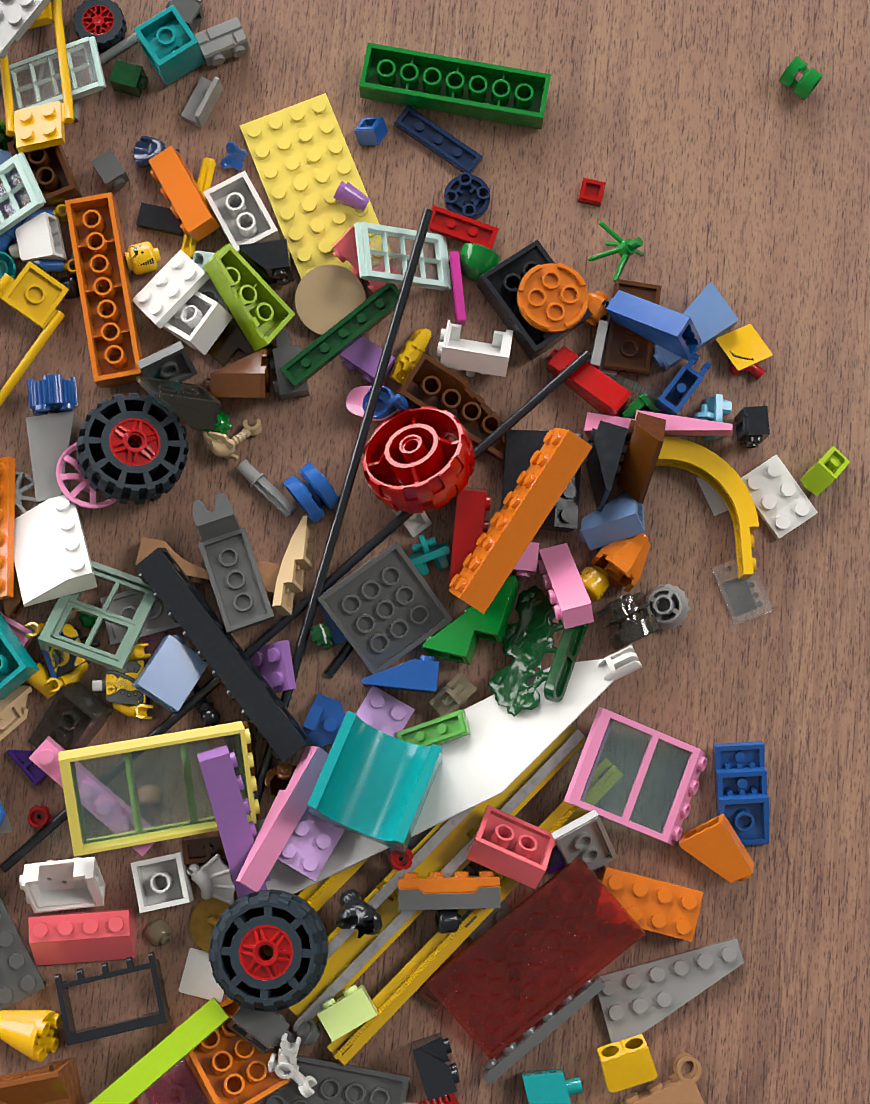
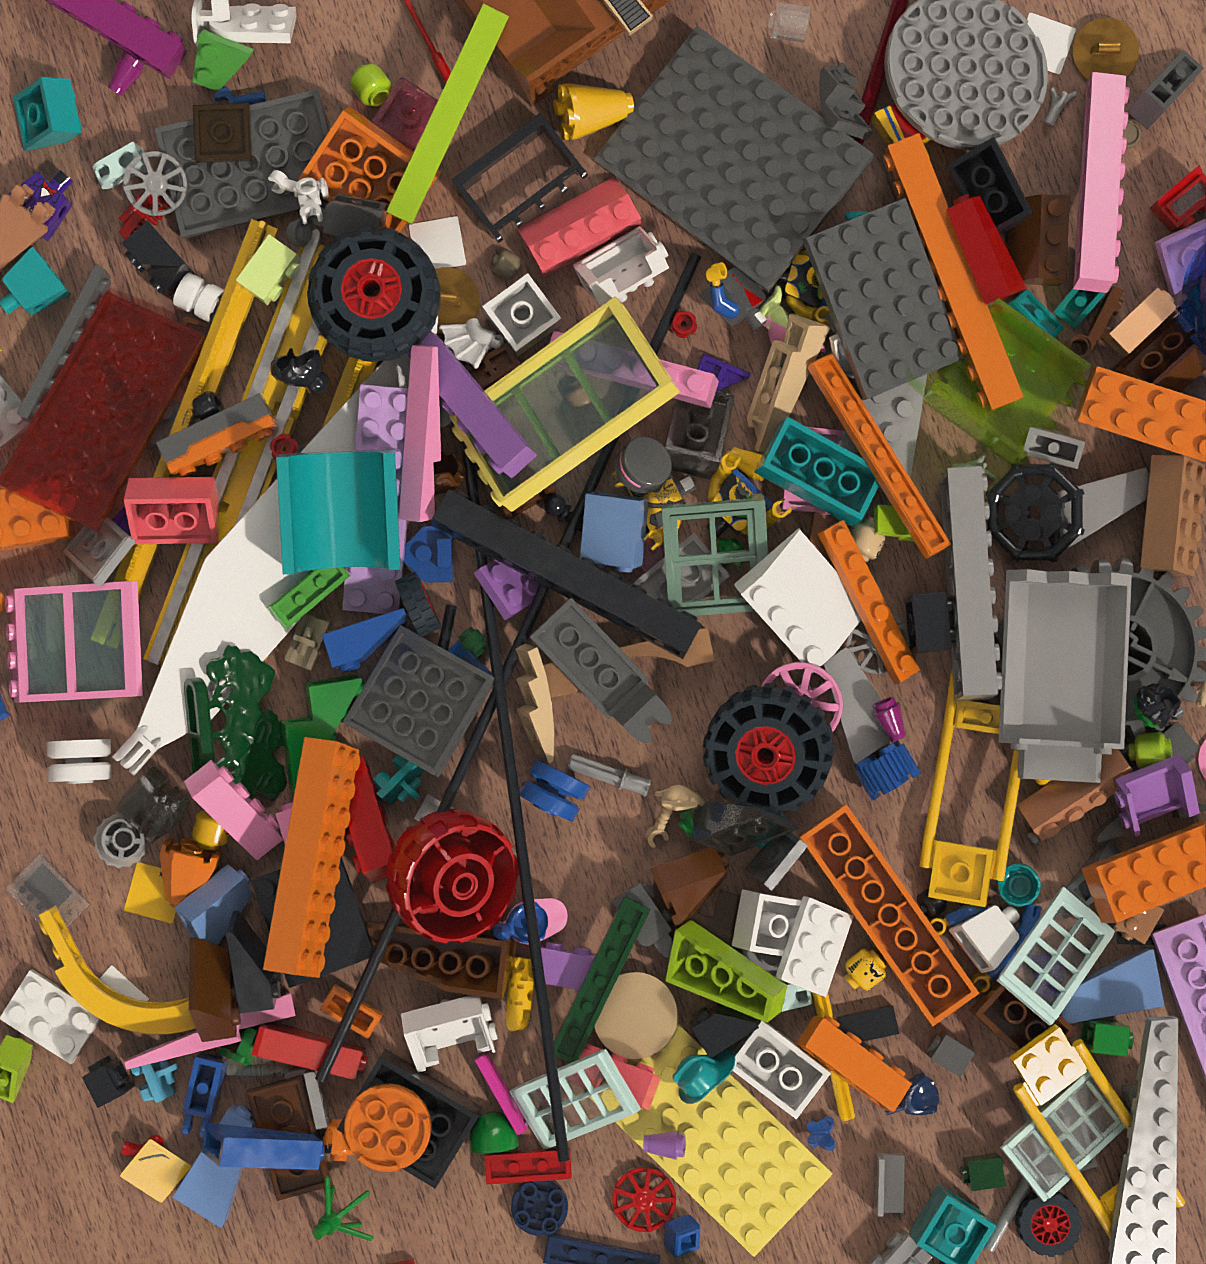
camera: 155 degrees right, 5 degrees up
(28, 432) = (890, 718): none -> magenta cone
(121, 712) = (643, 464): none -> dark grey head
(300, 231) = (700, 1074): none -> teal piece
(351, 684) = (418, 604): none -> black wheel
(387, 168) = (644, 1199): none -> red wheel
(419, 1021) = (195, 295): none -> white wheel
(551, 407) = (365, 1019): none -> orange brick
(662, 557) = (147, 894): none -> yellow sticker
(672, 680) = (79, 761): none -> white wheel

